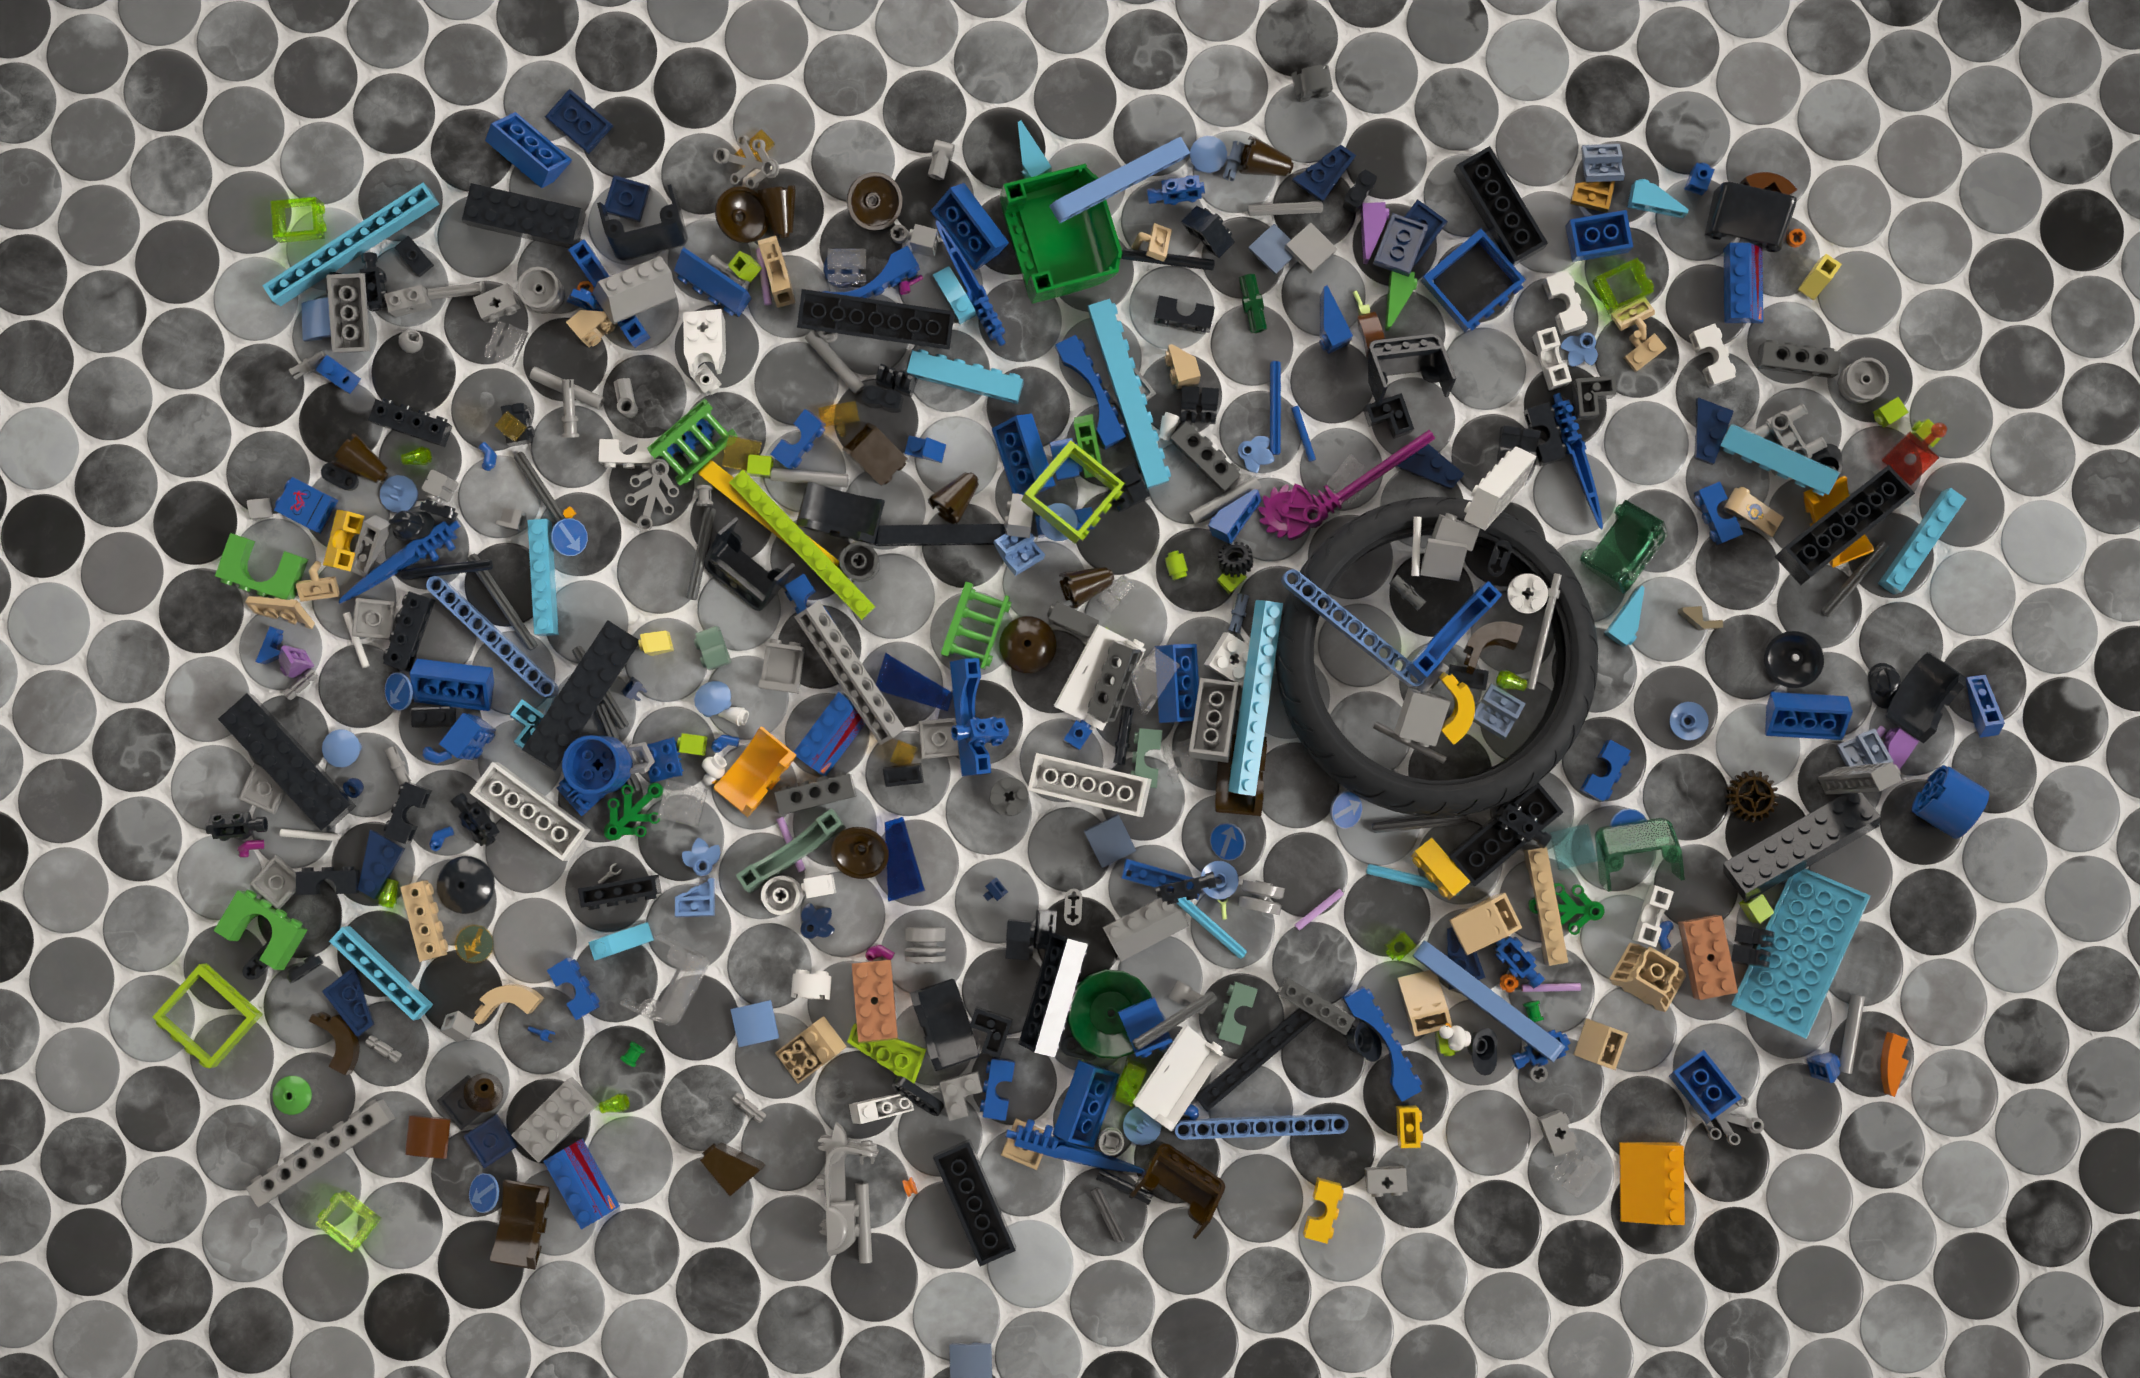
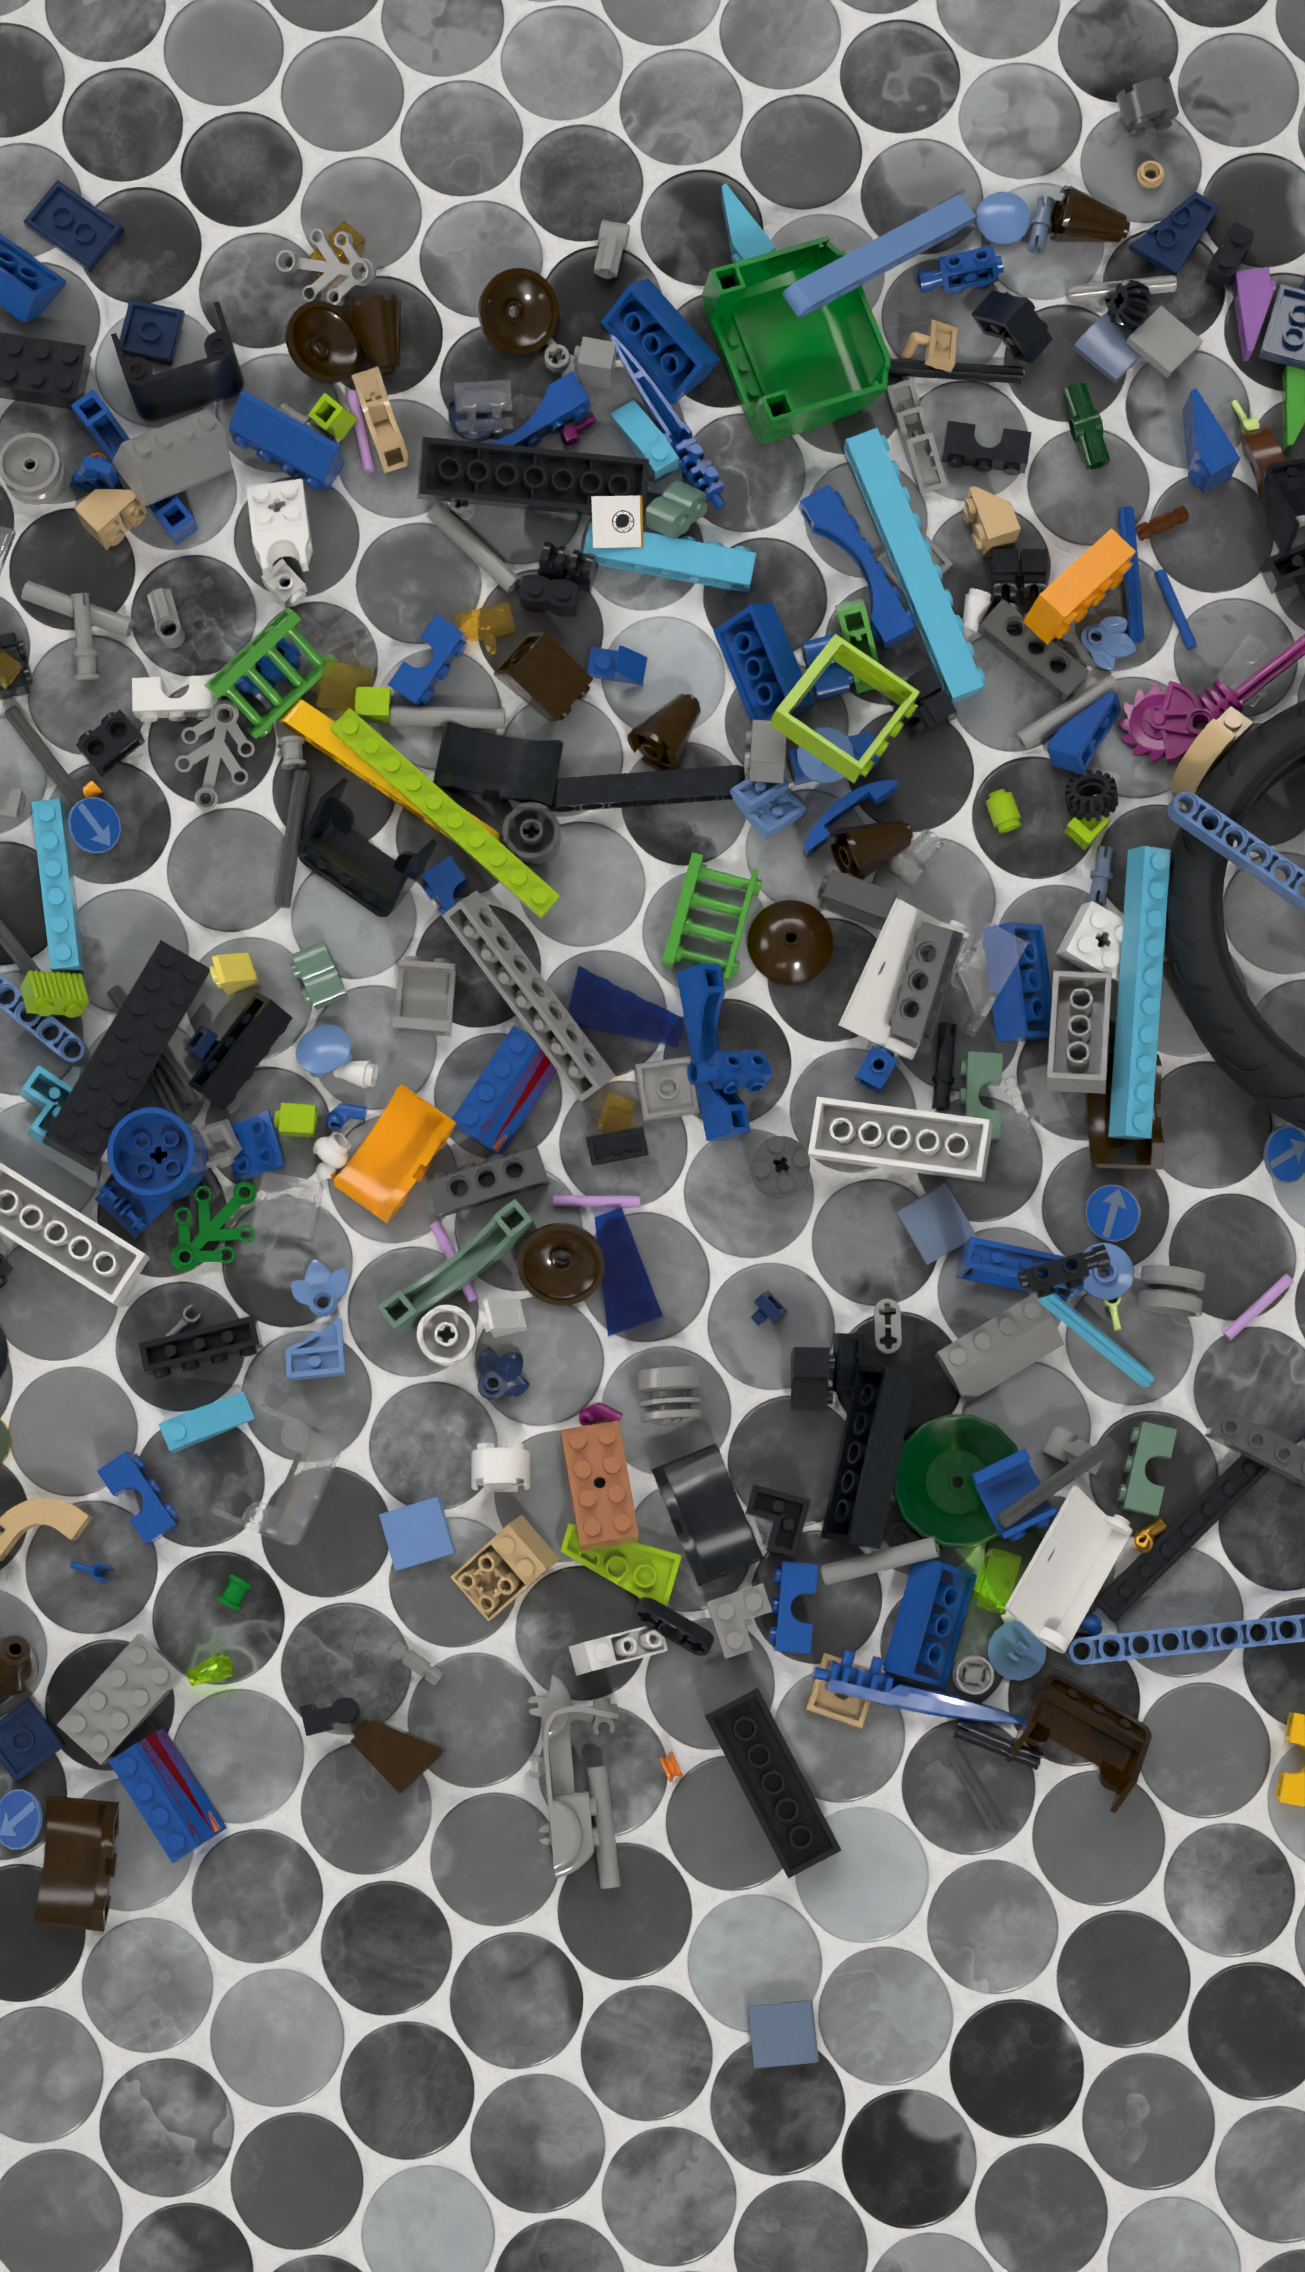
camera: 10 degrees left, 5 degrees down
(536, 650) = (54, 993): none -> lime brick
(586, 486) = (114, 748): none -> black brick
(657, 696) = (240, 1051): none -> black brick
(685, 1142) = (318, 1721): none -> black legs
(887, 810) = (596, 1201): none -> lavender piece
(930, 352) = (617, 521): none -> white sticker
(971, 345) = (676, 509): none -> sand green brick
(1056, 1062) = (880, 1560): none -> light grey piece
(1092, 548) = (874, 792): none -> blue slope
(1137, 303) = (916, 436): none -> light grey slope
(1232, 1056) = (1145, 1536): none -> pearl gold arm
(1238, 417) = (1080, 587): none -> light orange brick
(1288, 221) = (1129, 304): none -> black gear
(1299, 373) = (1162, 523): none -> reddish brown axle
(1311, 124) = (1150, 167): none -> tan plate
(1316, 534) = (1209, 749): none -> tan arch

